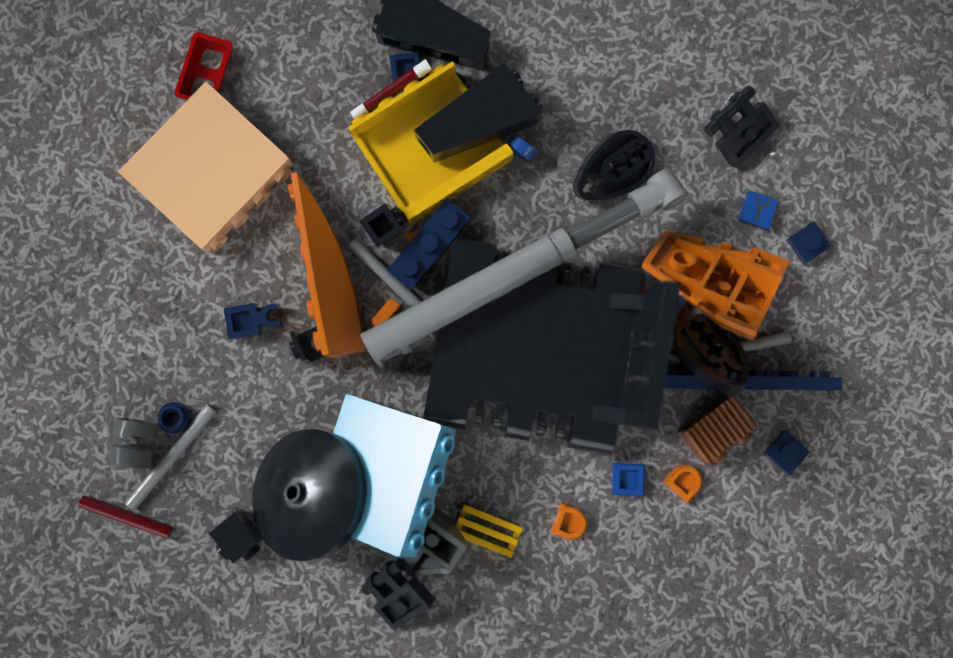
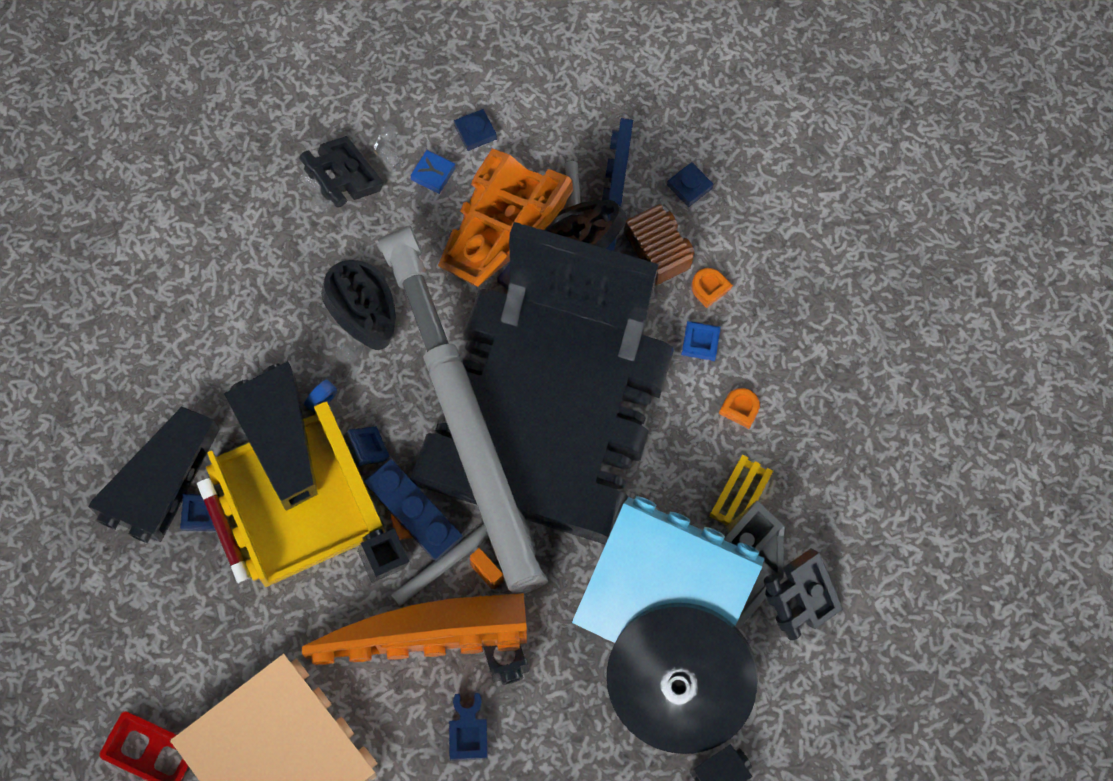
camera: 80 degrees left, 15 degrees down
(482, 195) = (366, 446): none -> dark blue tile

